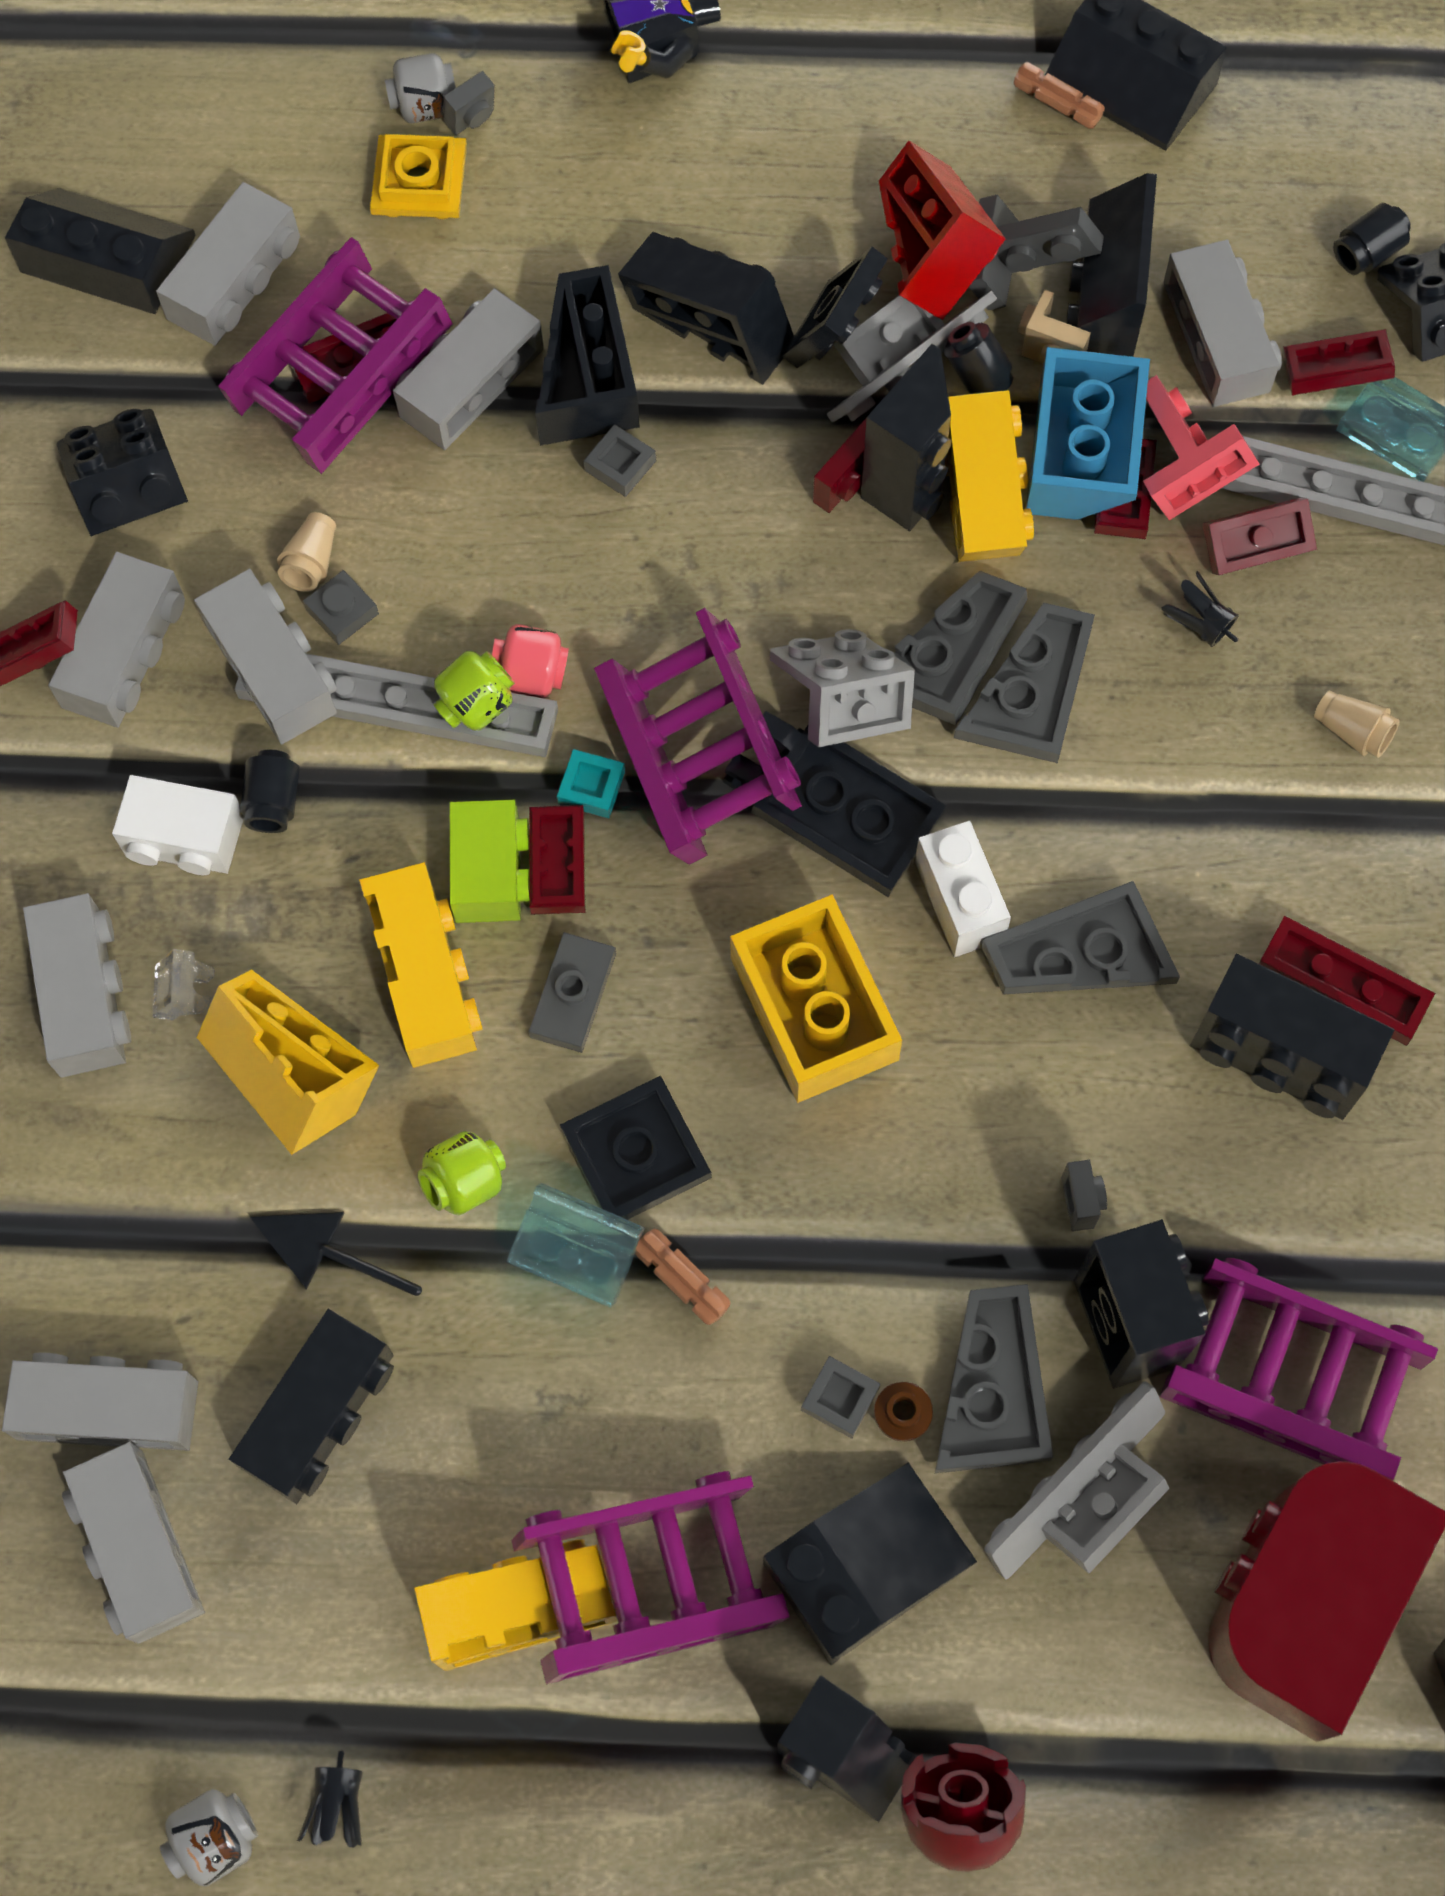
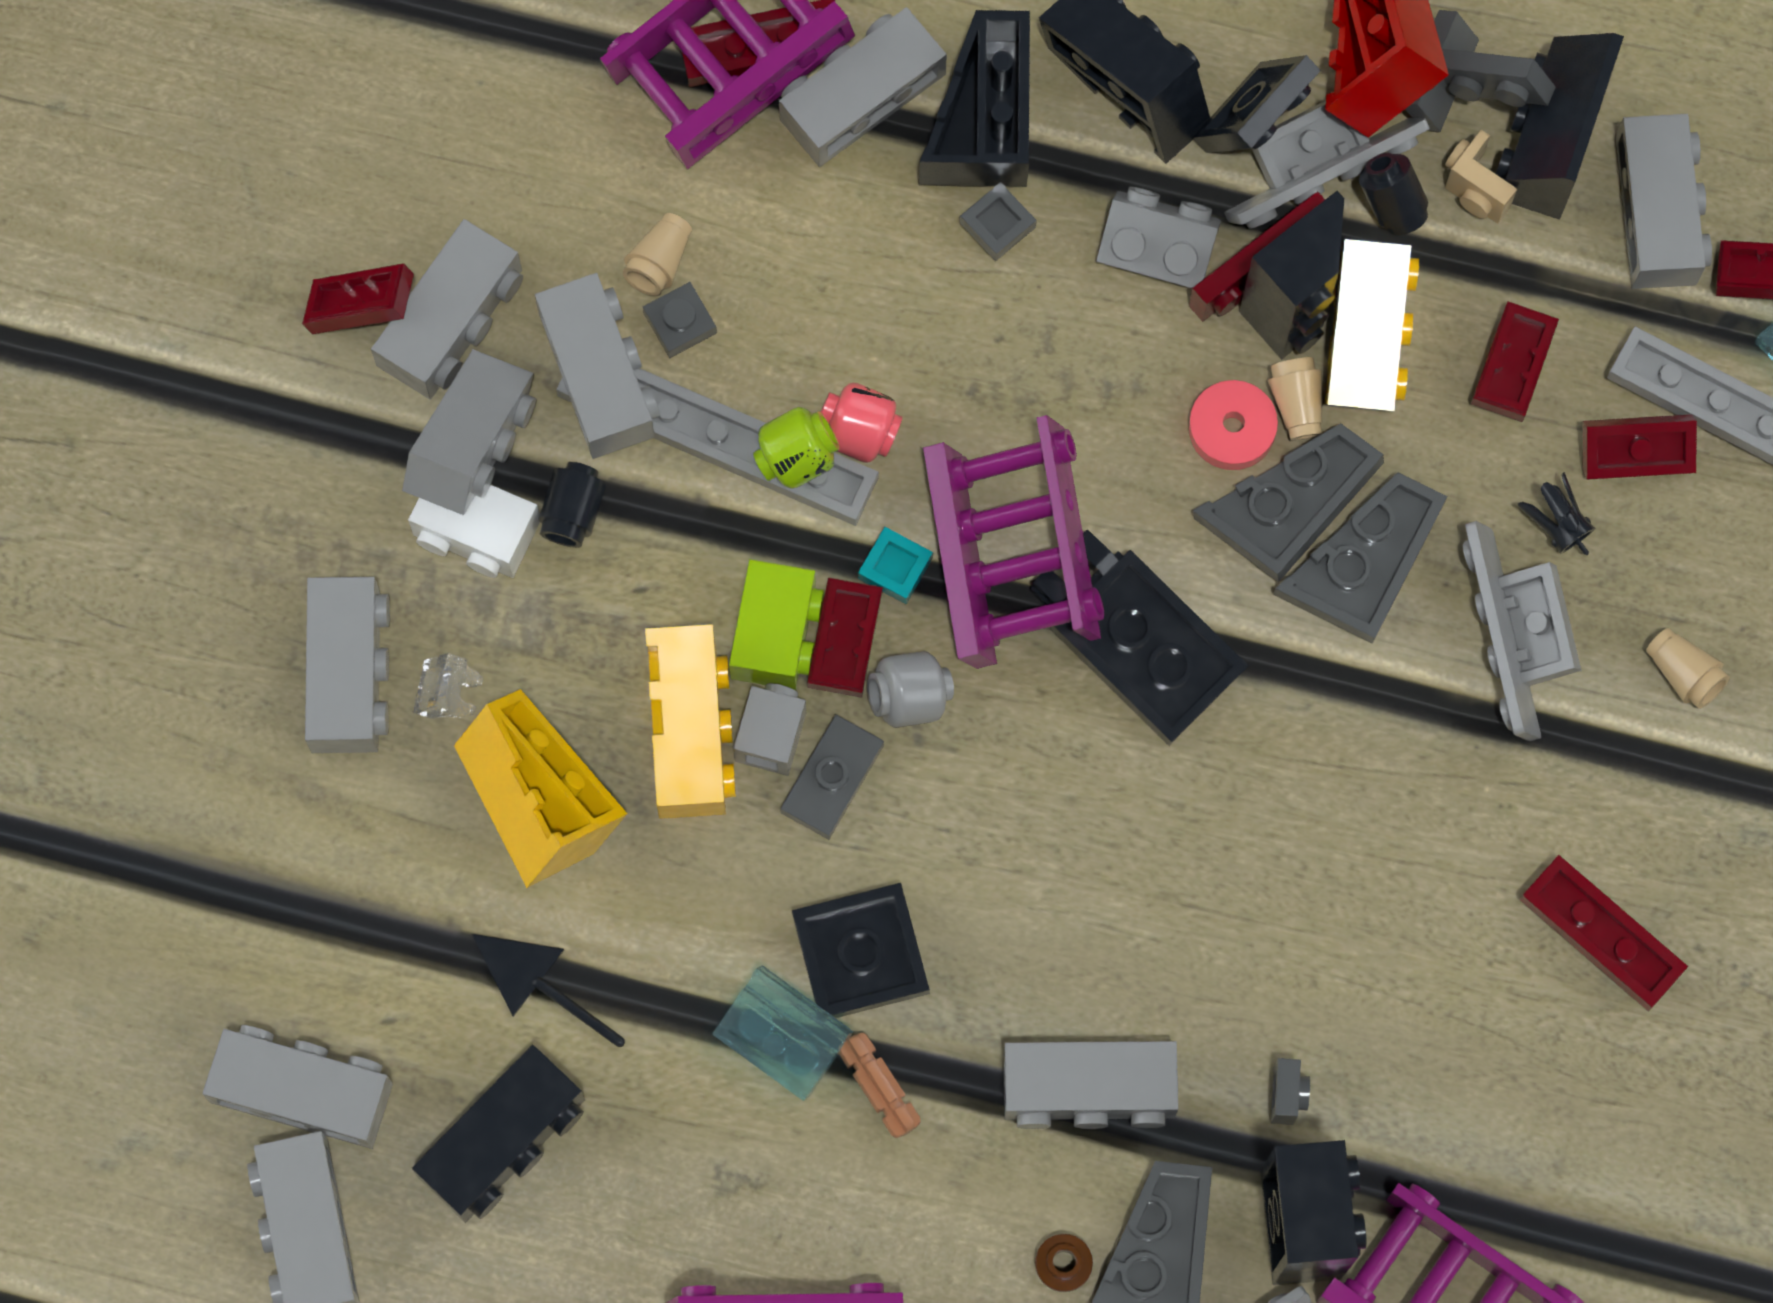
camera: 10 degrees right, 5 degrees up
(120, 470) = (481, 121): black bracket -> none
(155, 741) = (469, 433): none -> light grey brick
(461, 1173) = (686, 937): lime head -> none
(503, 958) = (770, 728): none -> light grey brick
(629, 893) = (909, 689): none -> light grey head
(771, 447) = (1159, 237): none -> light grey bracket
(815, 998) = (1069, 838): yellow brick -> none
(840, 1397) = (1006, 1236): dark grey plate -> none
(852, 684) = (1179, 517): light grey bracket -> none
(882, 574) = (1227, 448): none -> coral piece
(889, 1228) = (1090, 1083): none -> light grey brick
(934, 555) = (1298, 396): none -> tan cone
(961, 887) = (1242, 757): white brick -> none
(1083, 947) = (1350, 841): dark grey wing -> none
(1087, 433) = (1487, 299): dark azure slope -> none
(1200, 714) = (1526, 627): none -> light grey bracket
(1202, 463) = (1596, 356): coral bracket -> none
(1291, 1038) = (1527, 982): black brick -> none

